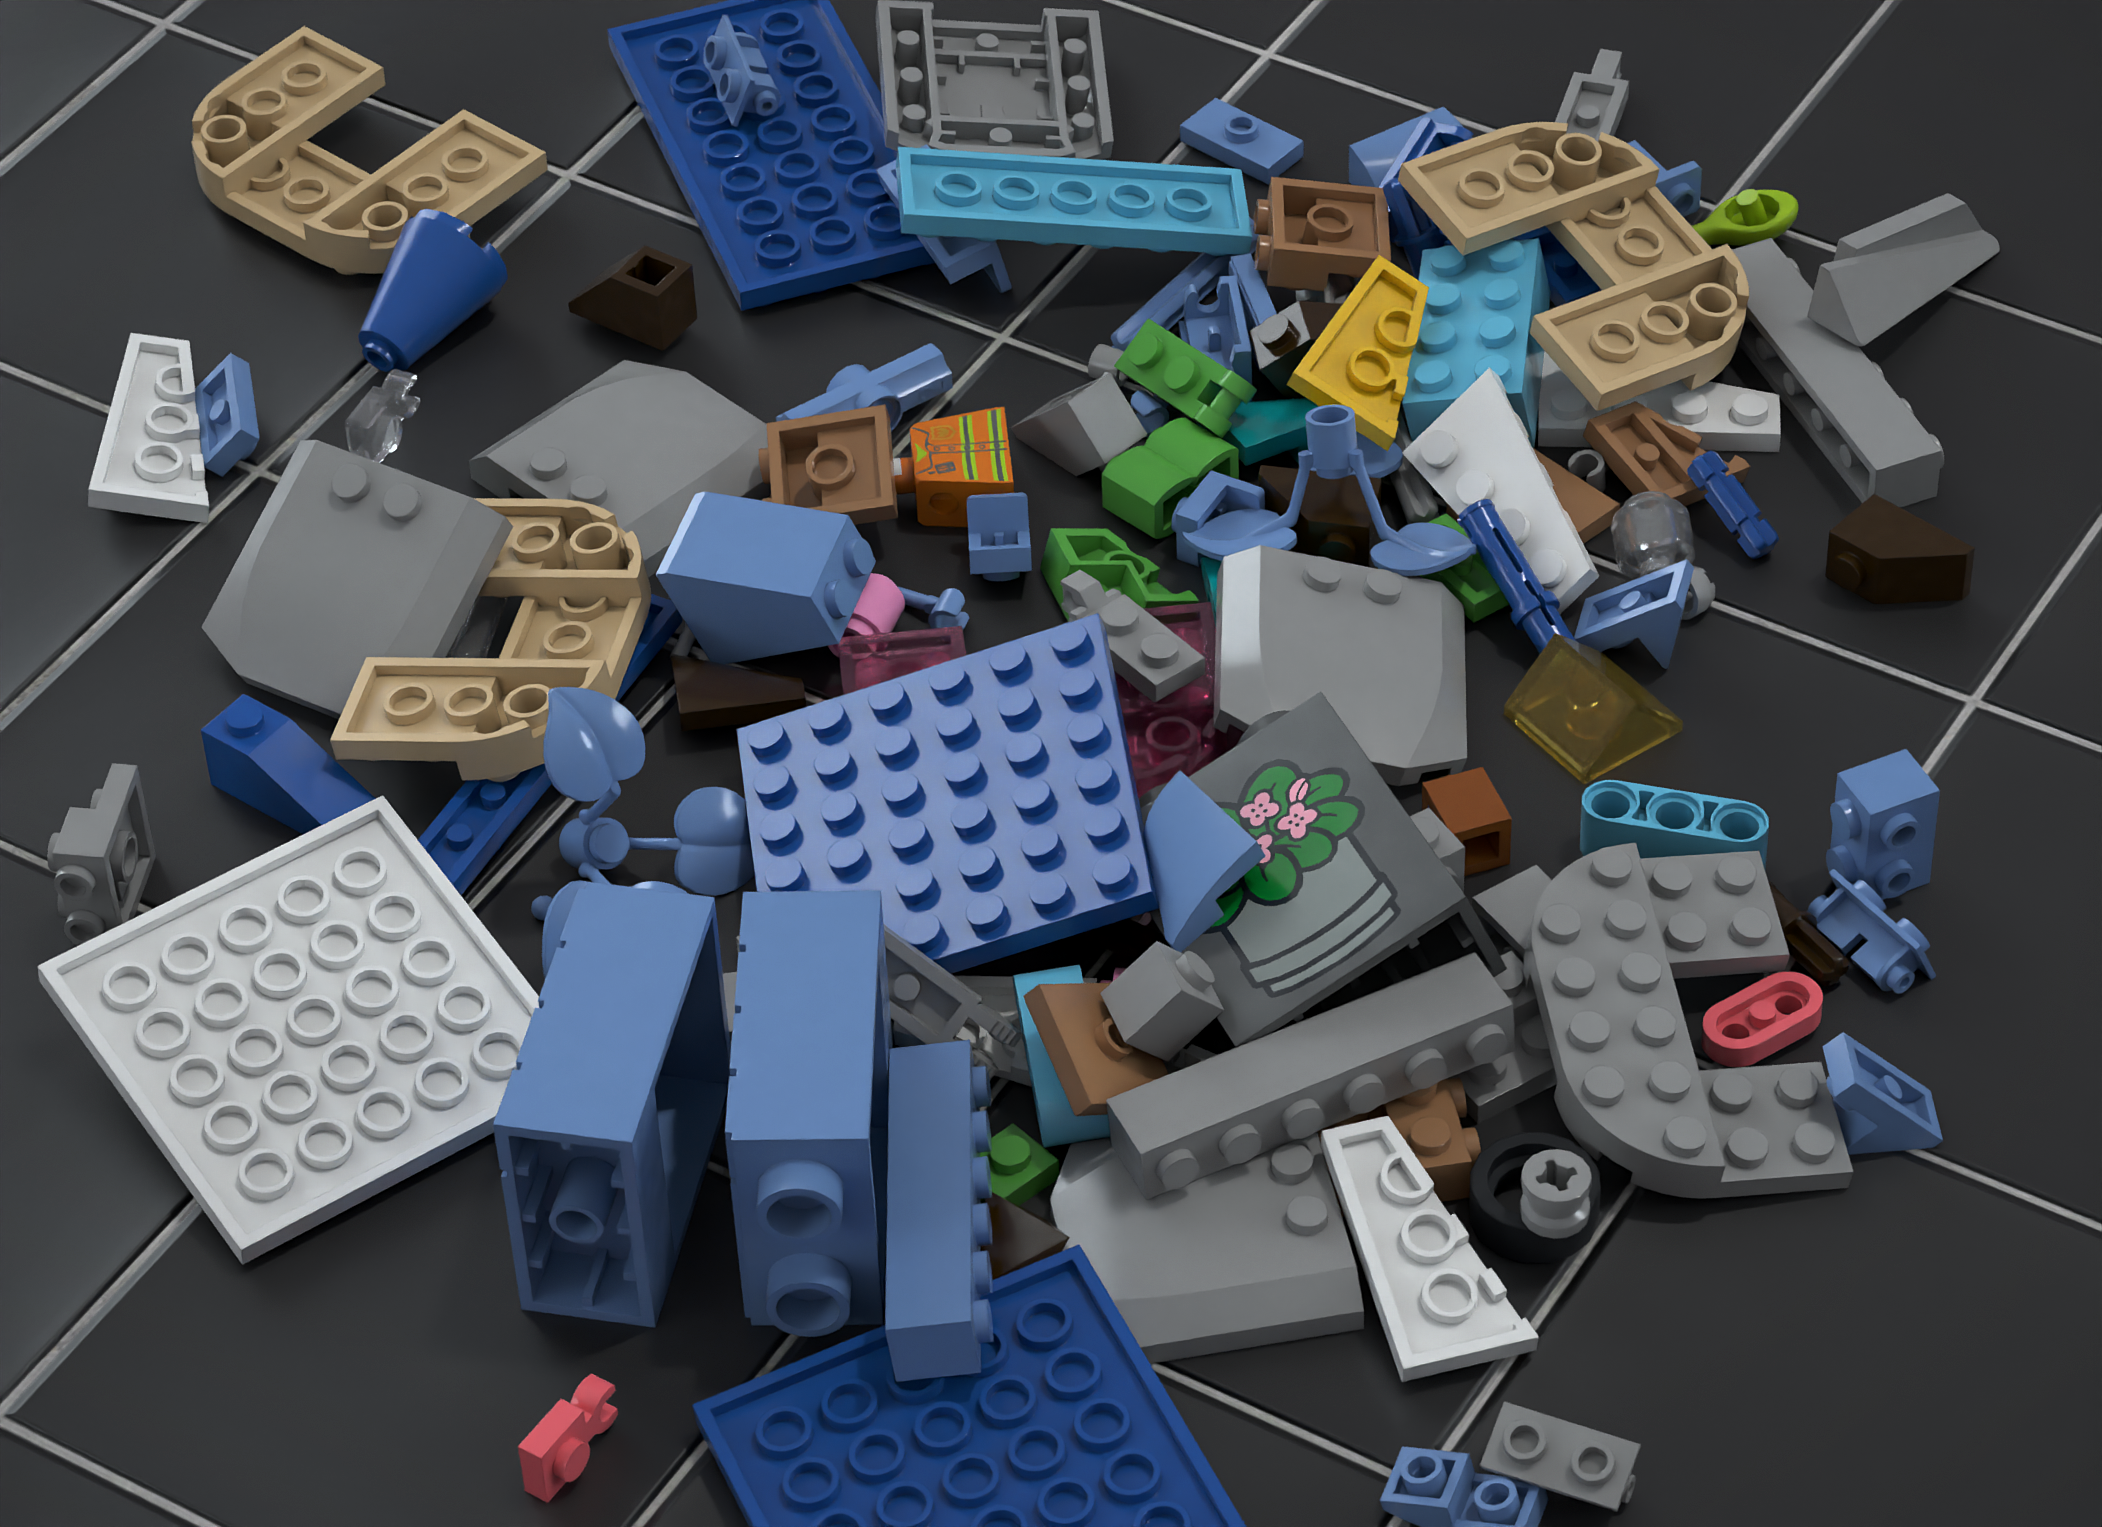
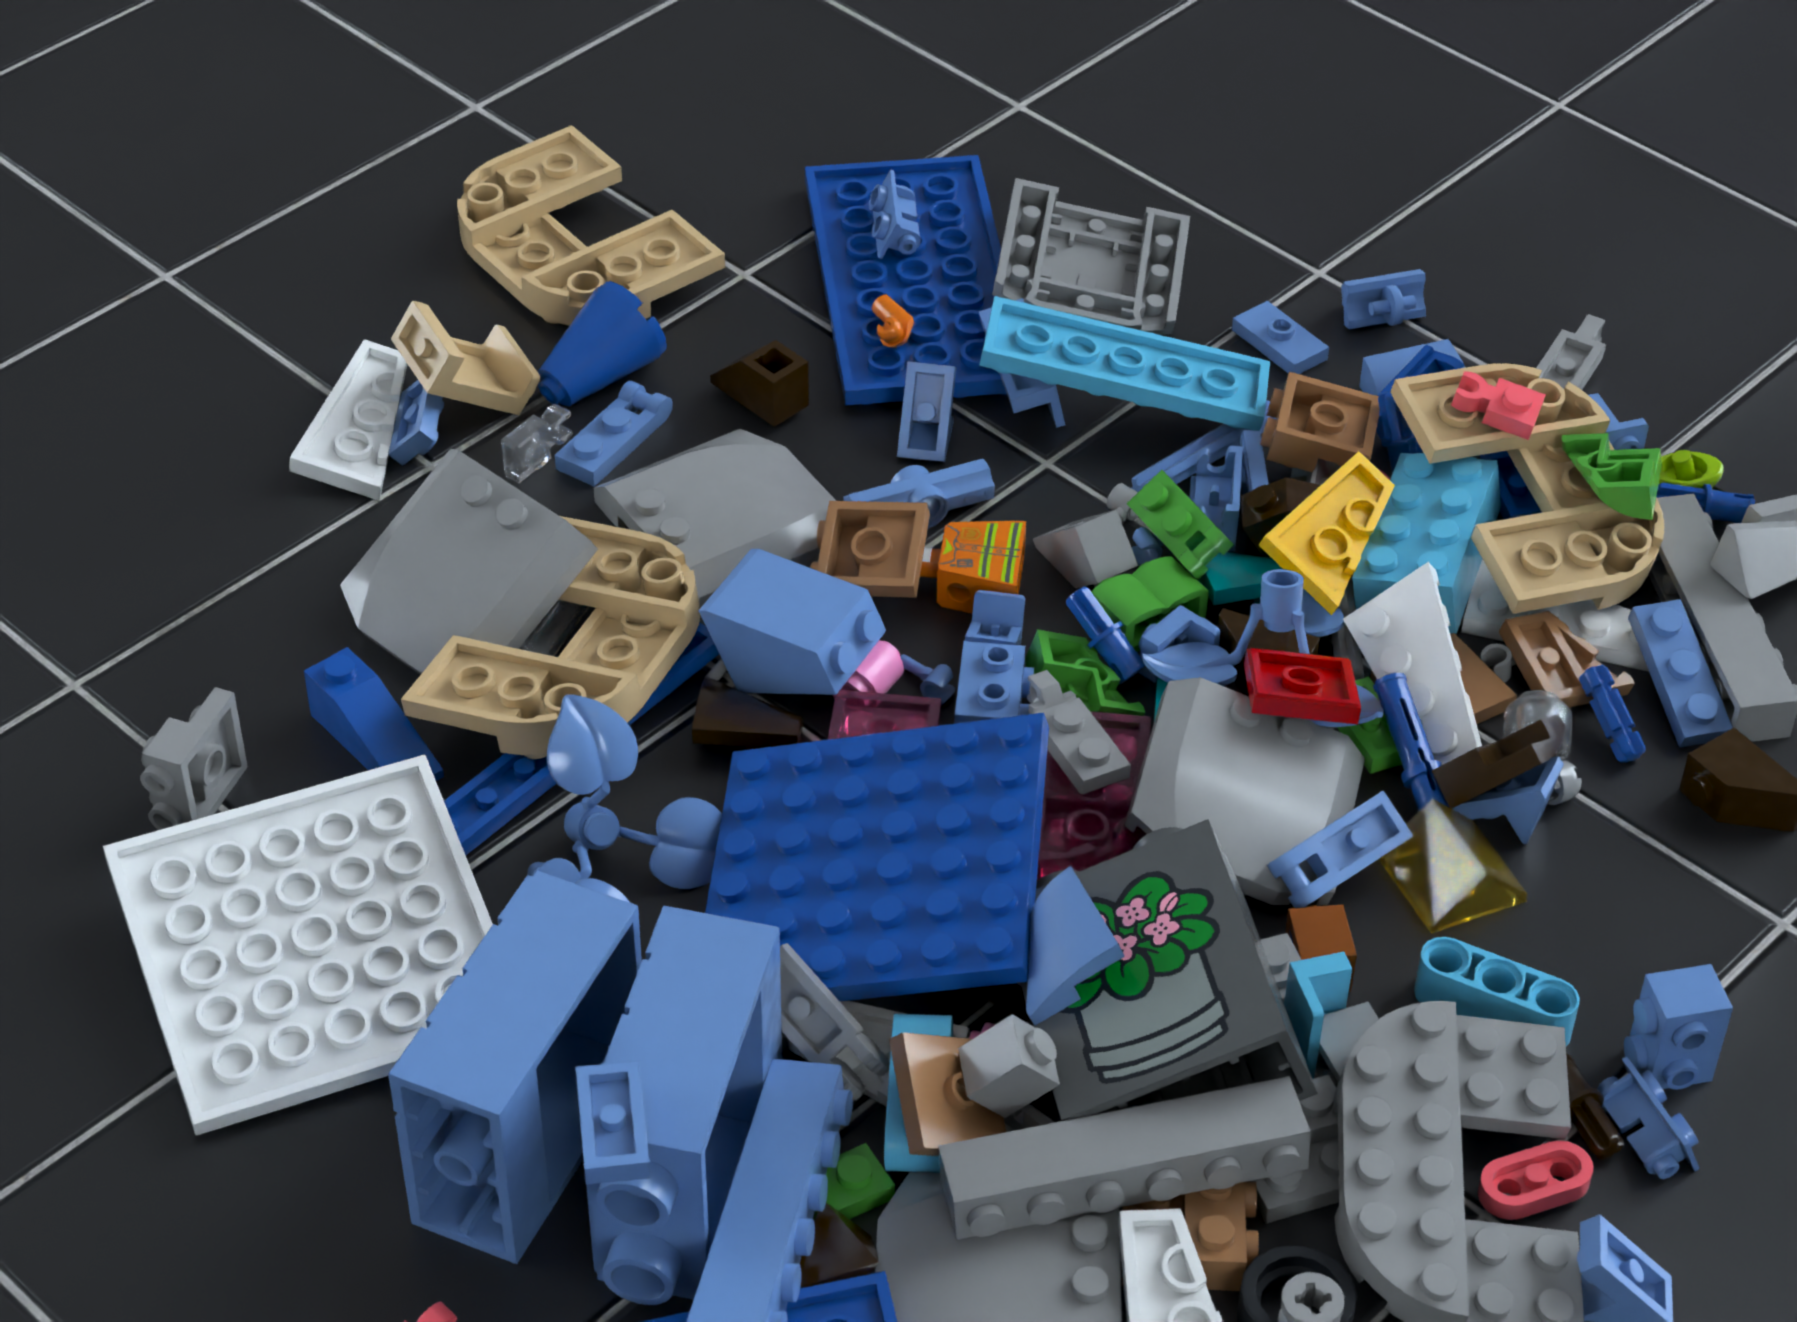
camera: 10 degrees right, 0 degrees up
(293, 348) = (479, 374): none -> tan panel
(470, 393) = (613, 434): none -> medium blue plate
(765, 1121) = (612, 1122): none -> medium blue plate
(780, 200) = (896, 319): none -> orange arm
(846, 300) = (927, 412): none -> medium blue slope
(1014, 596) = (991, 682): none -> medium blue brick
(1130, 519) = (1105, 635): none -> blue axle
(1353, 72) = (1383, 299): none -> medium blue hips
(1378, 534) = (1302, 686): none -> red plate
(1465, 708) = (1341, 849): none -> medium blue plate
(1480, 859) = (1315, 989): none -> medium azure panel
(1536, 172) = (1506, 406): none -> coral plate
(1620, 578) = (1499, 761): none -> dark brown slope
(1685, 232) = (1620, 478): none -> bright green slope
(1798, 444) = (1679, 672): none -> medium blue plate
(1803, 246) = (1718, 504): none -> blue axle

